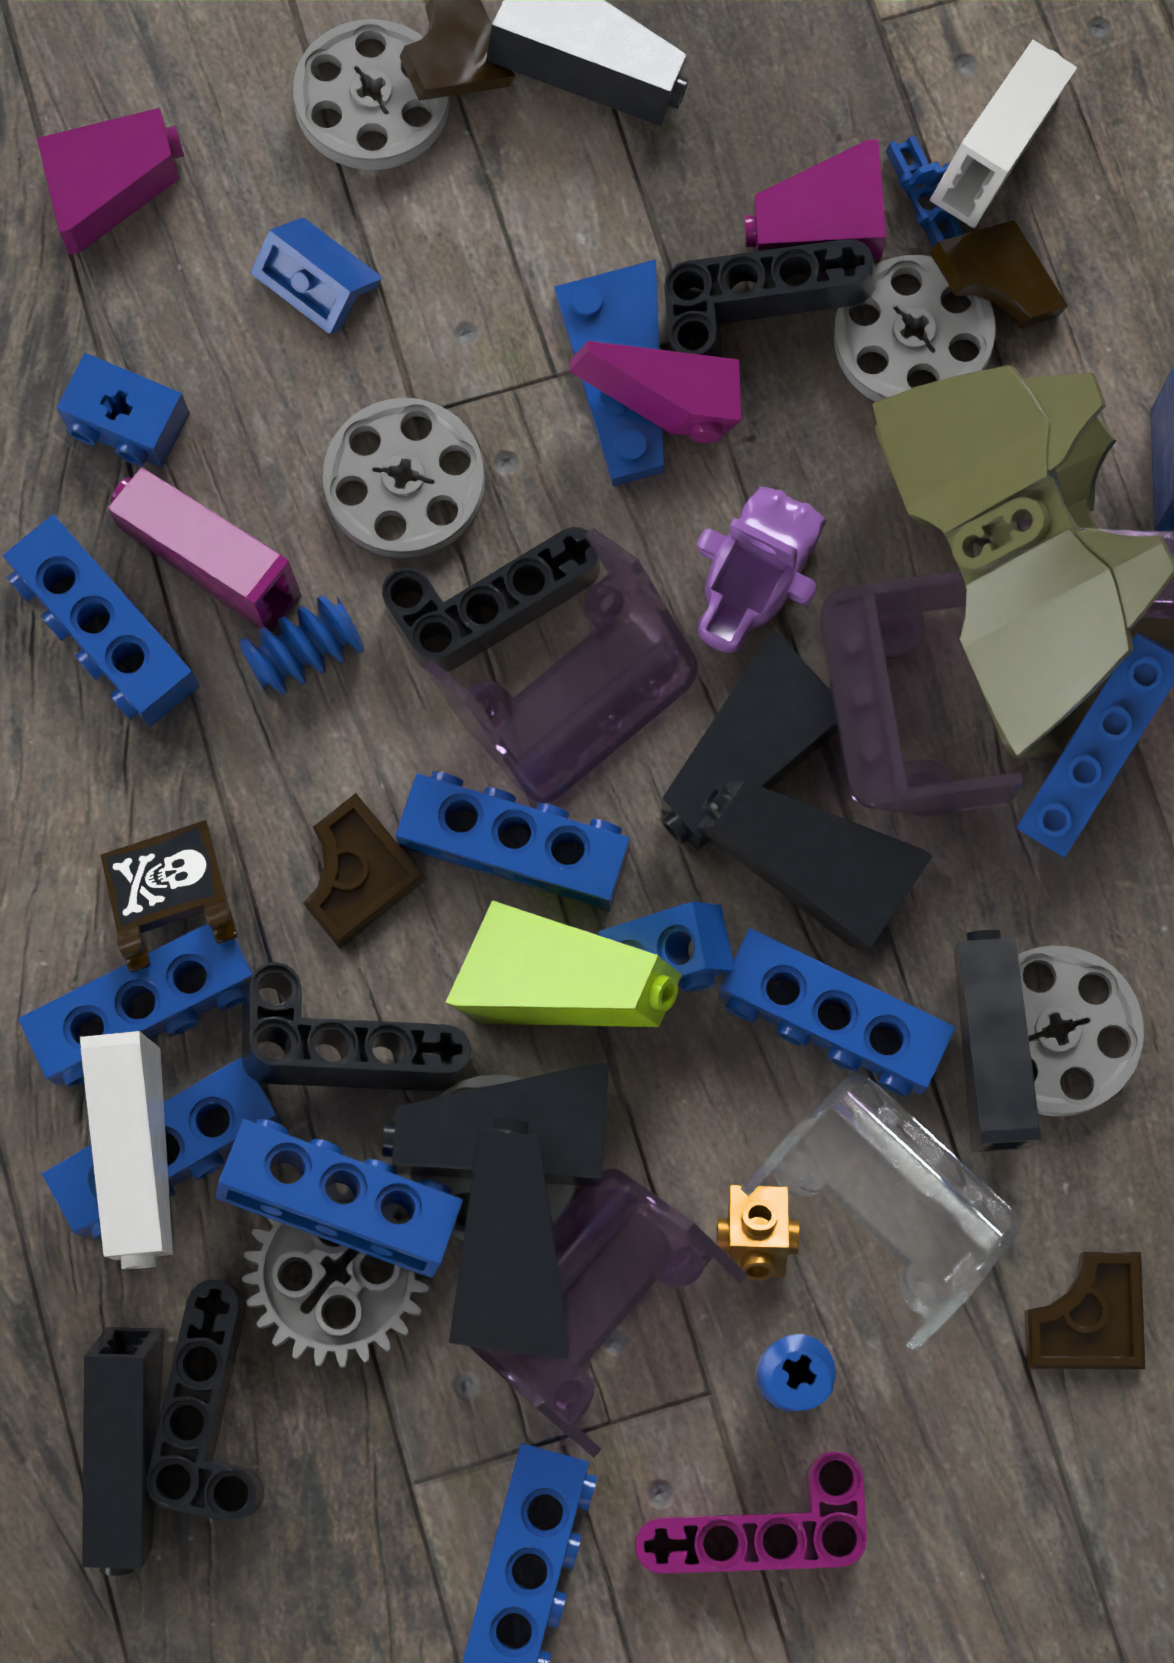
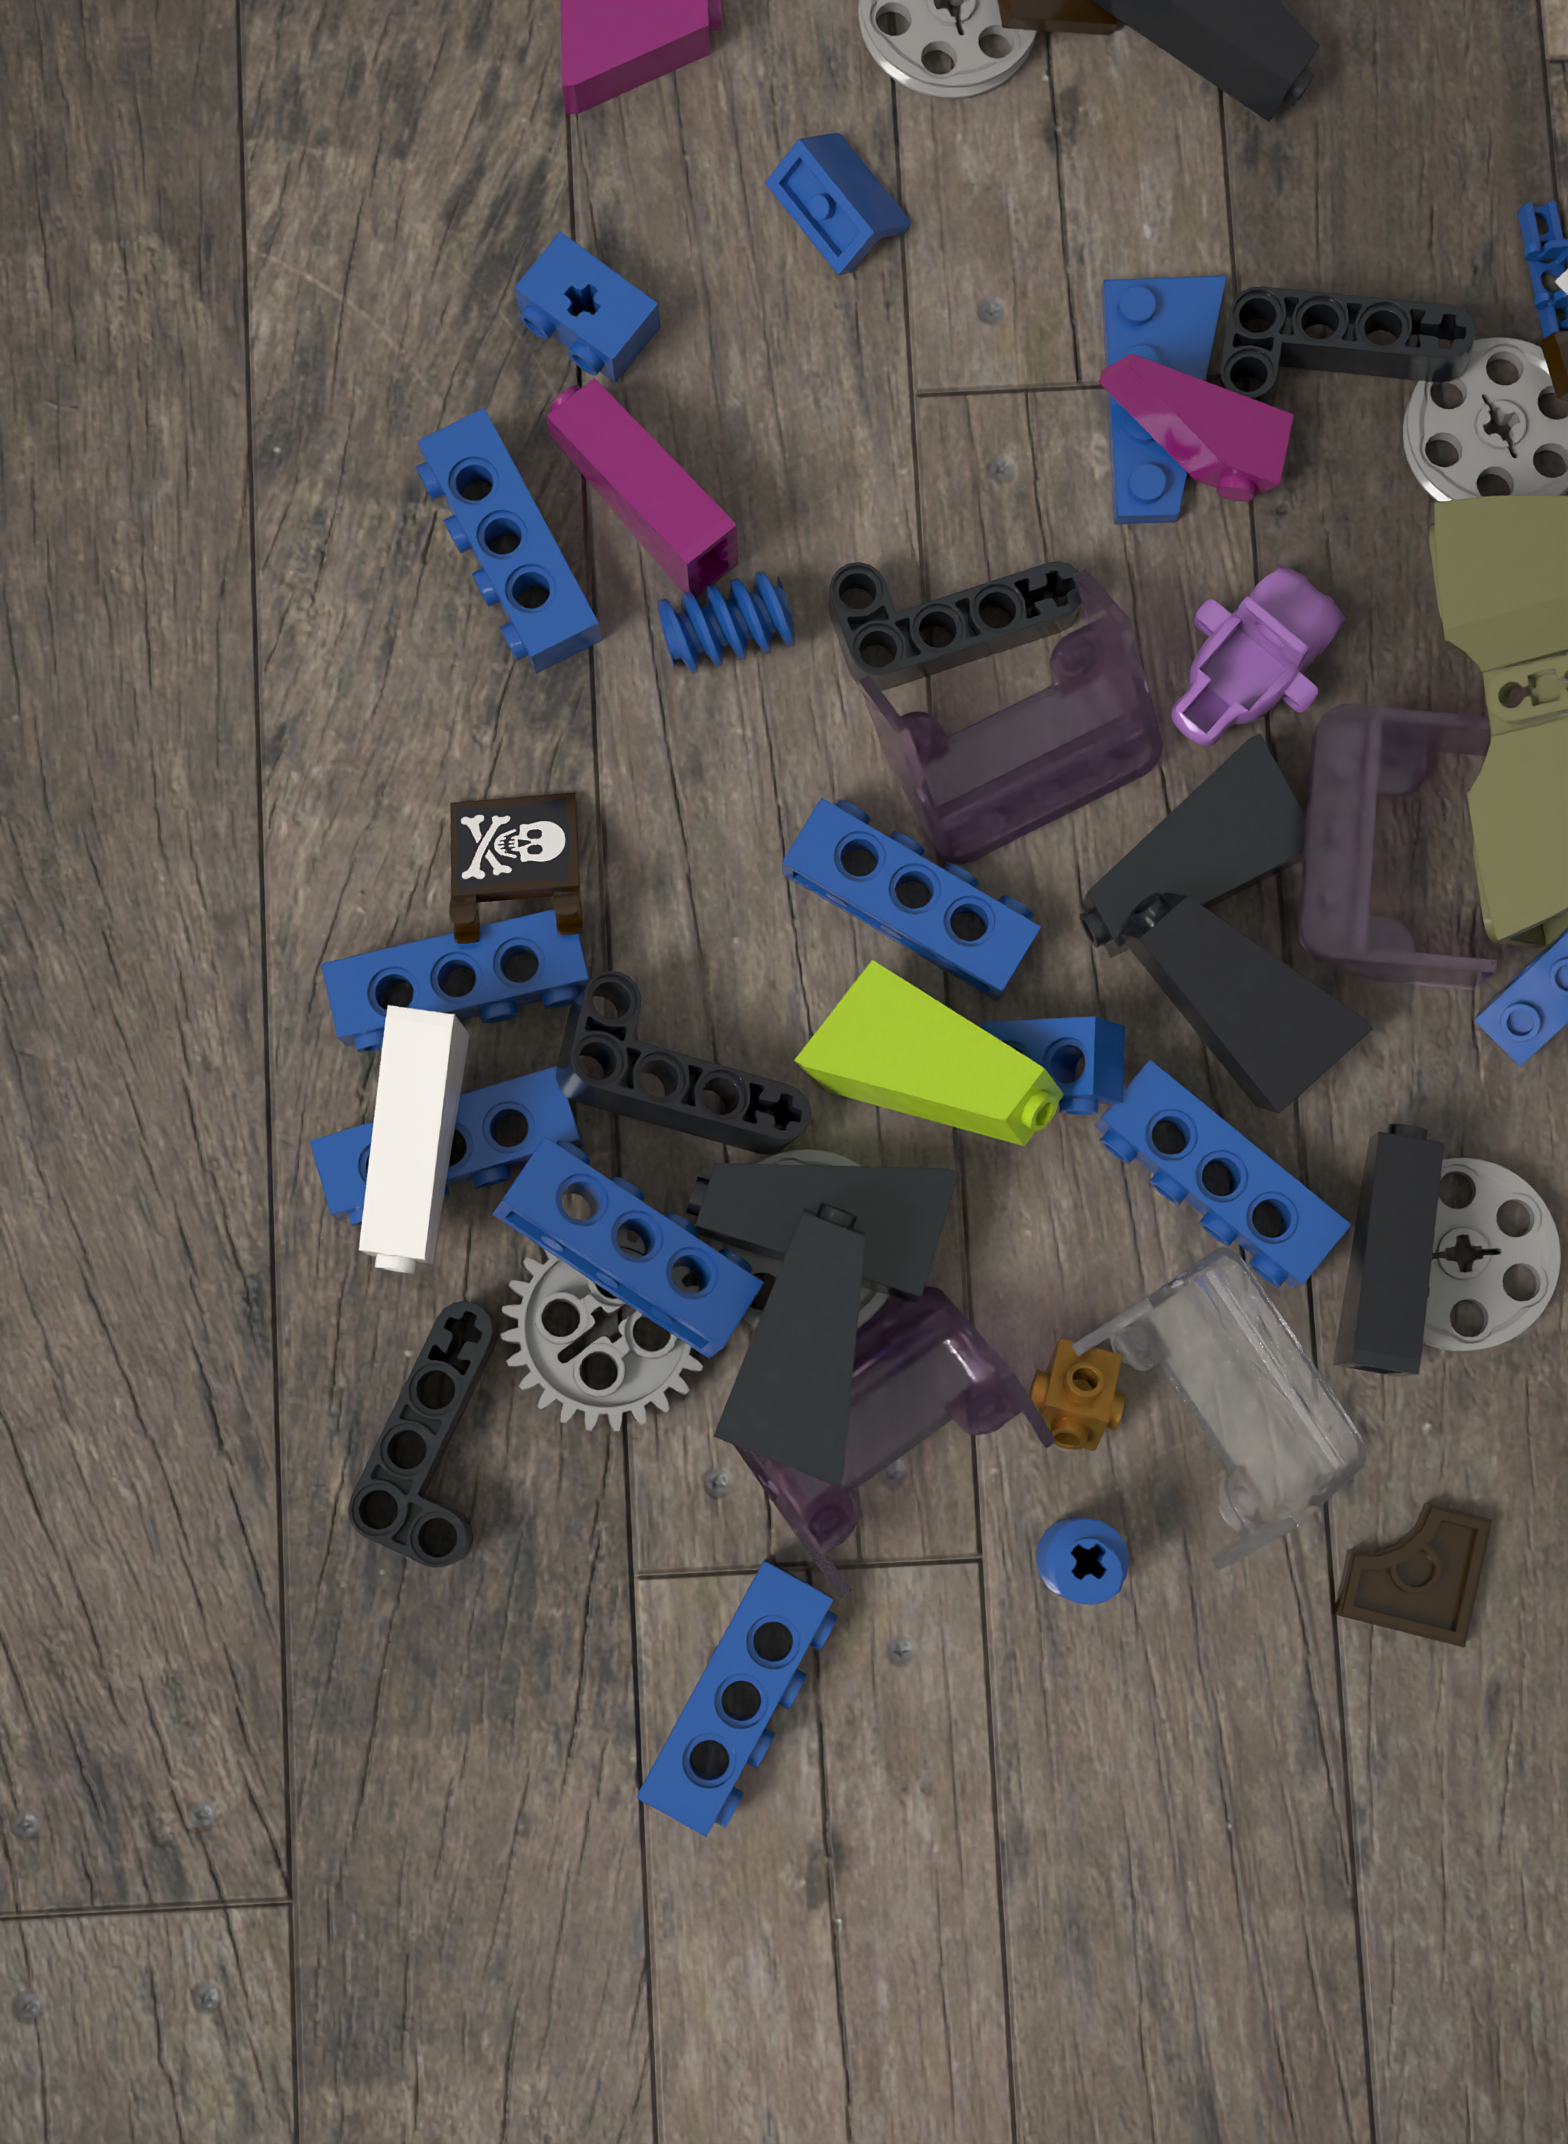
camera: 10 degrees right, 5 degrees up
(118, 1444) = (328, 1455): black slope -> none
(361, 872) = (734, 890): dark brown tile -> none
(393, 455) = (880, 429): light grey wedge -> none
(750, 1528) = (991, 1712): magenta beam -> none
(823, 204) = (1432, 258): magenta slope -> none

